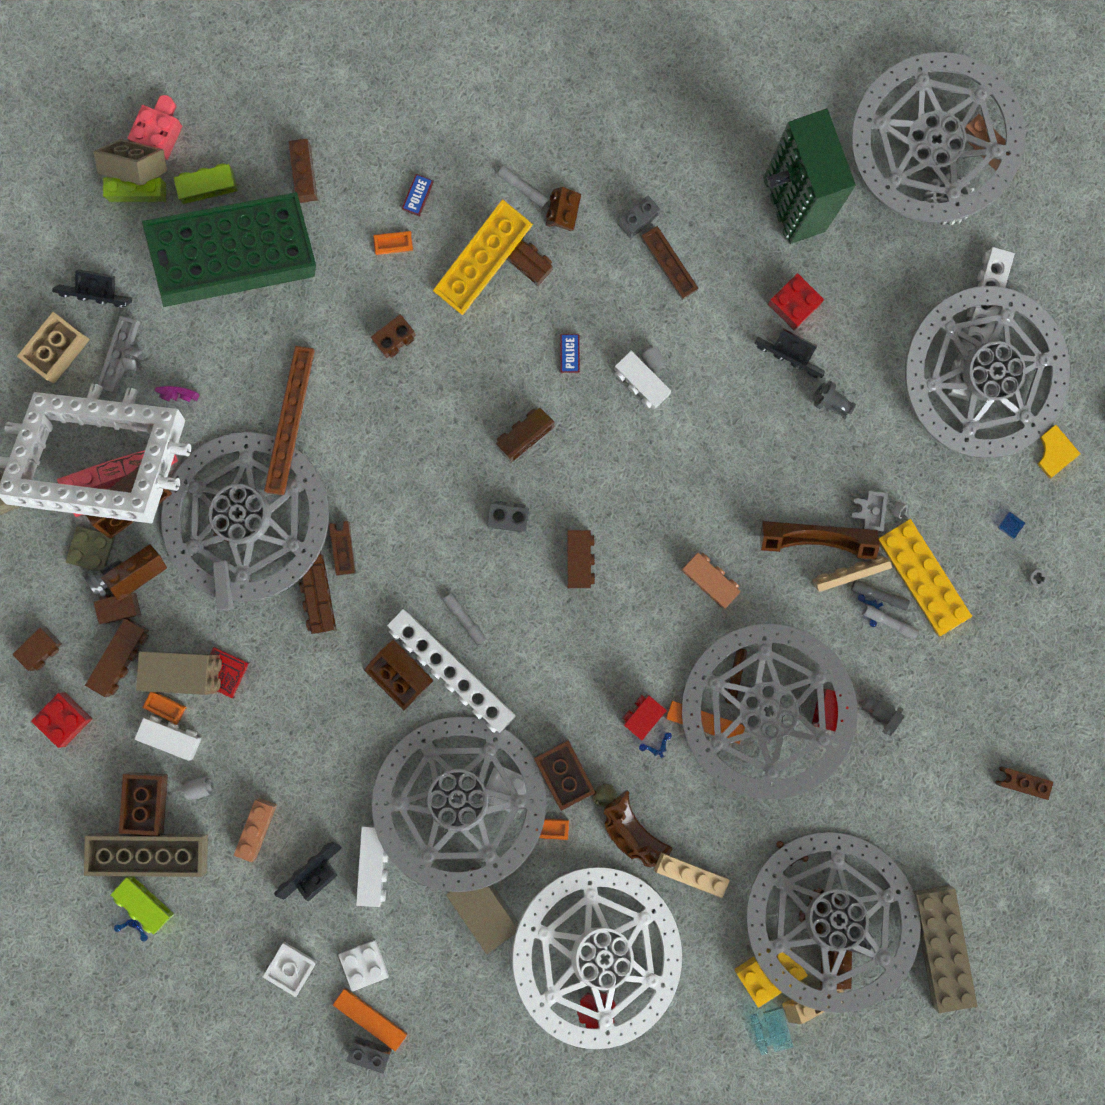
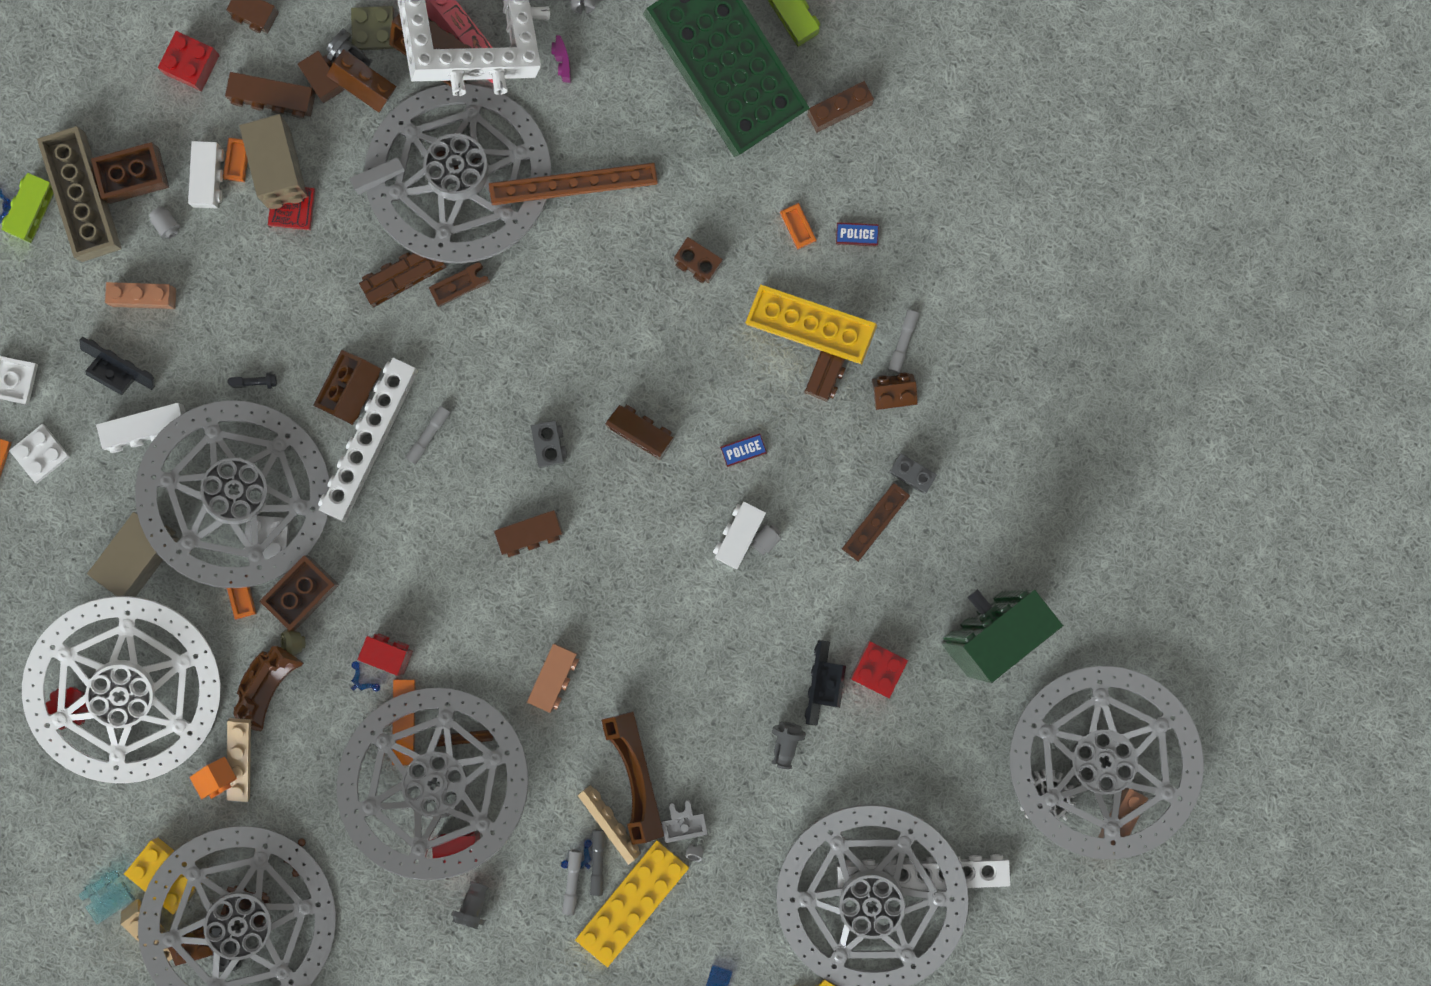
camera: 70 degrees right, 0 degrees up
(362, 766) = (240, 382): none -> black hinge
(701, 902) = (213, 778): none -> orange brick

